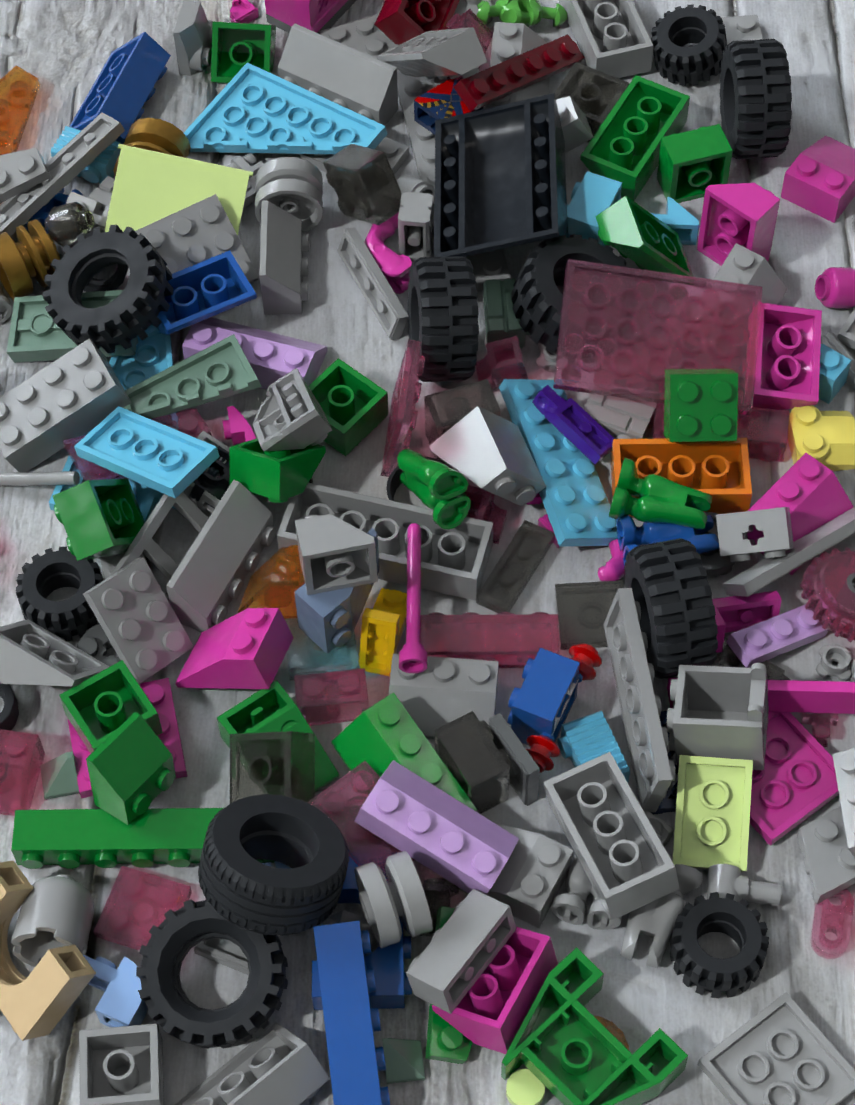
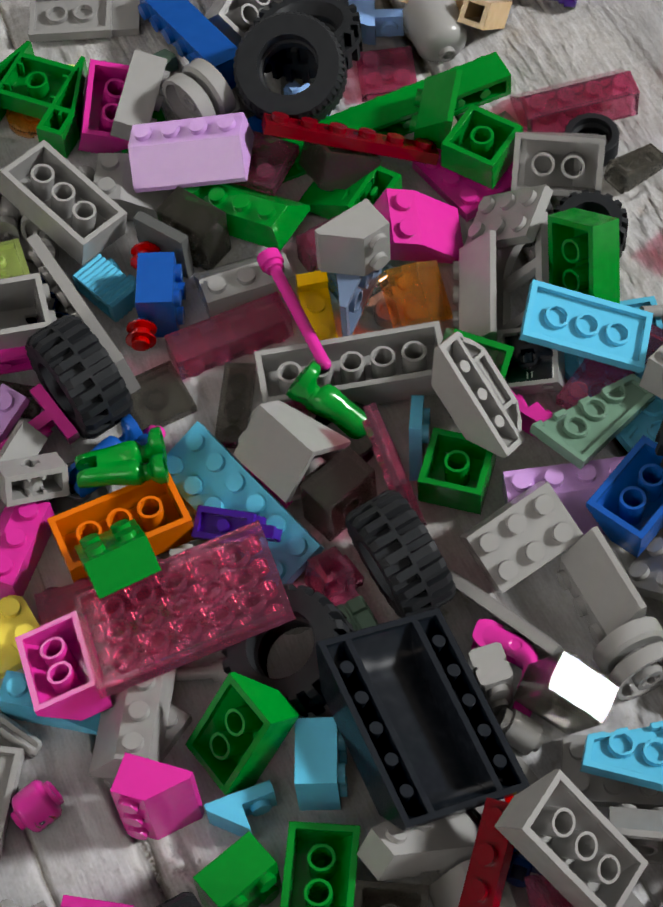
camera: 160 degrees right, 0 degrees up
(256, 768) = (339, 136): none -> dark red plate
(323, 314) = (521, 536): none -> light grey brick
(355, 462) = (418, 434): none -> medium azure wing

